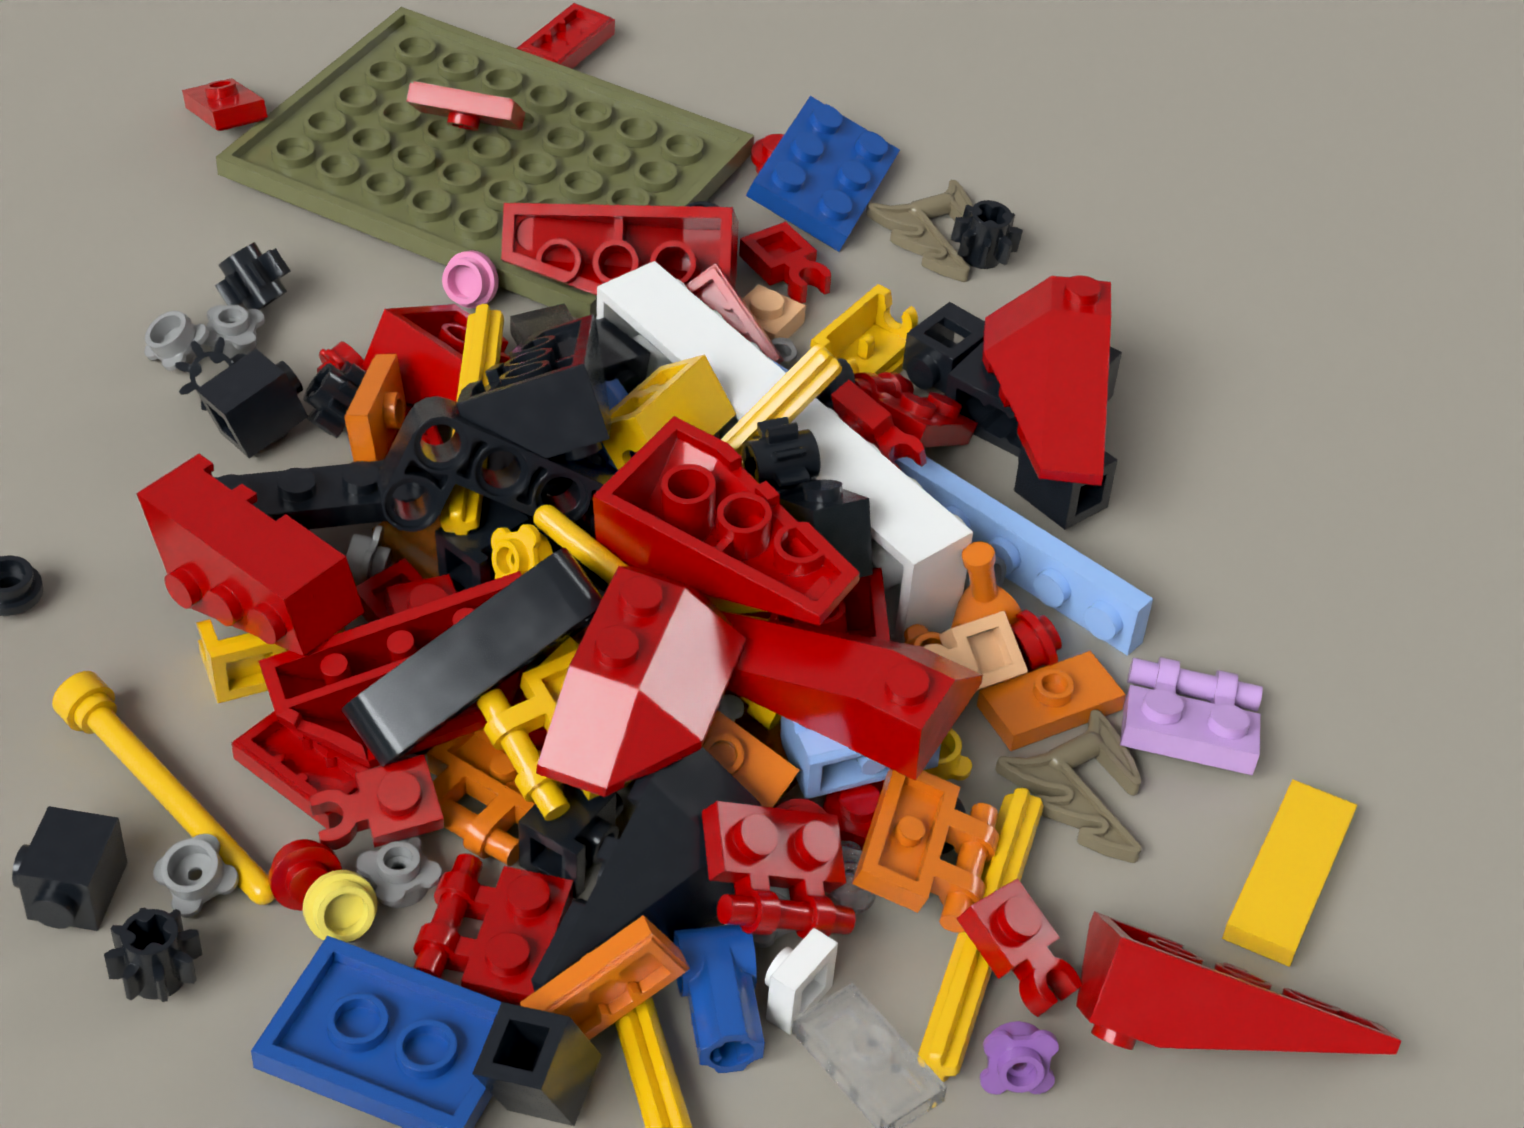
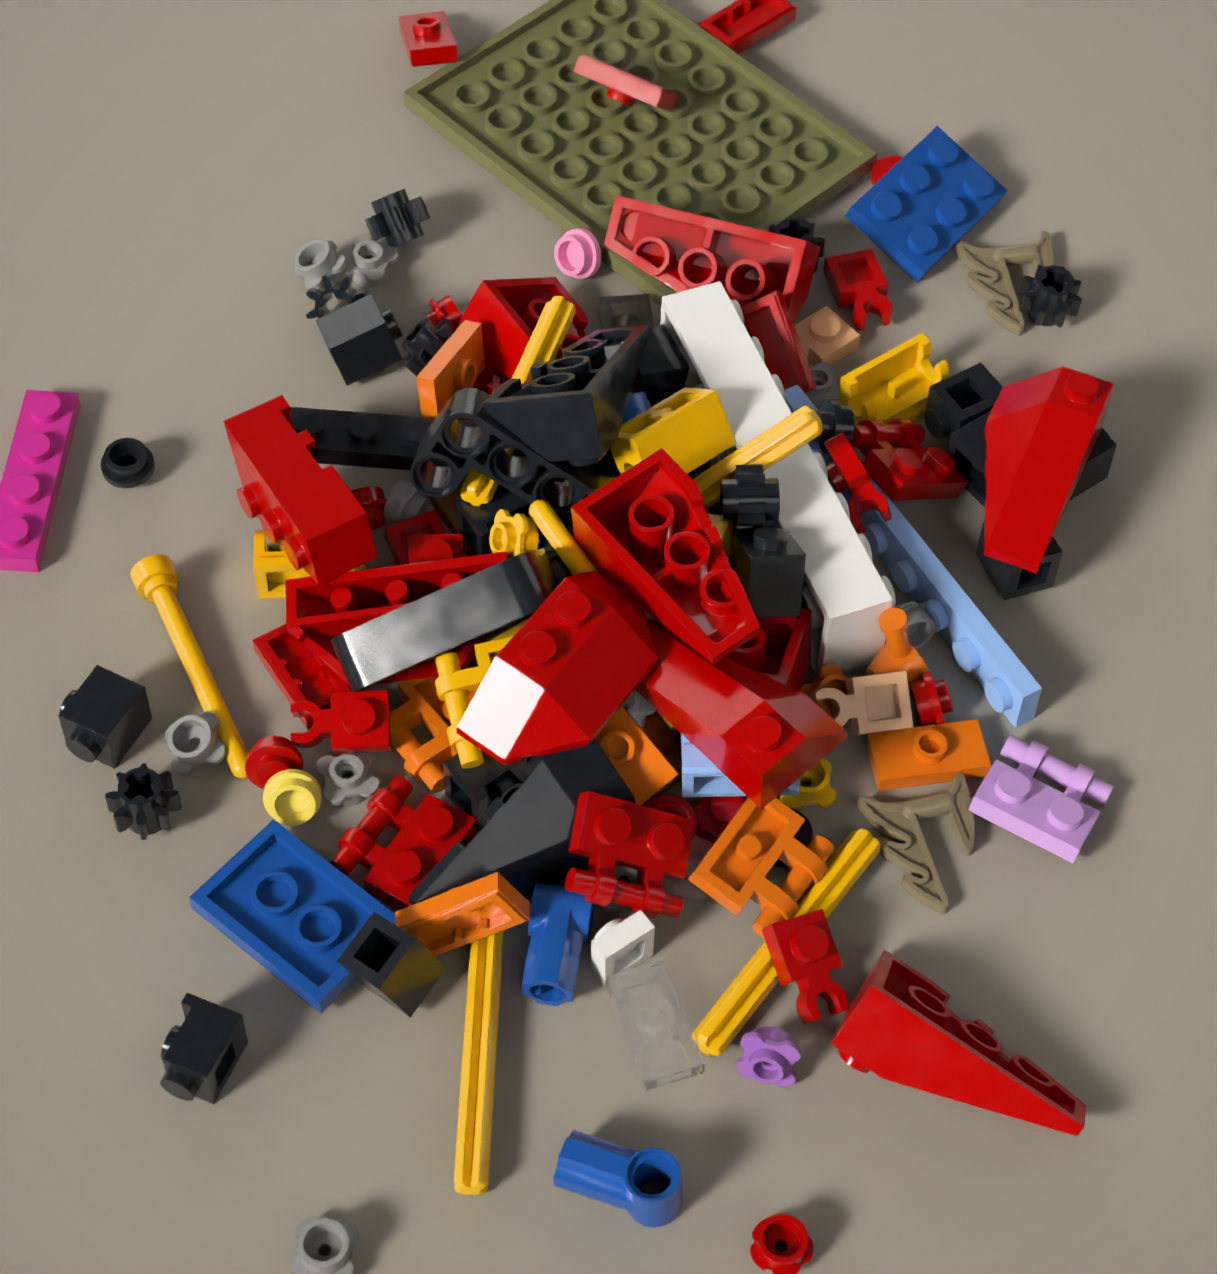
camera: 20 degrees right, 10 degrees up
(1289, 873) = (1068, 956): yellow tile -> none

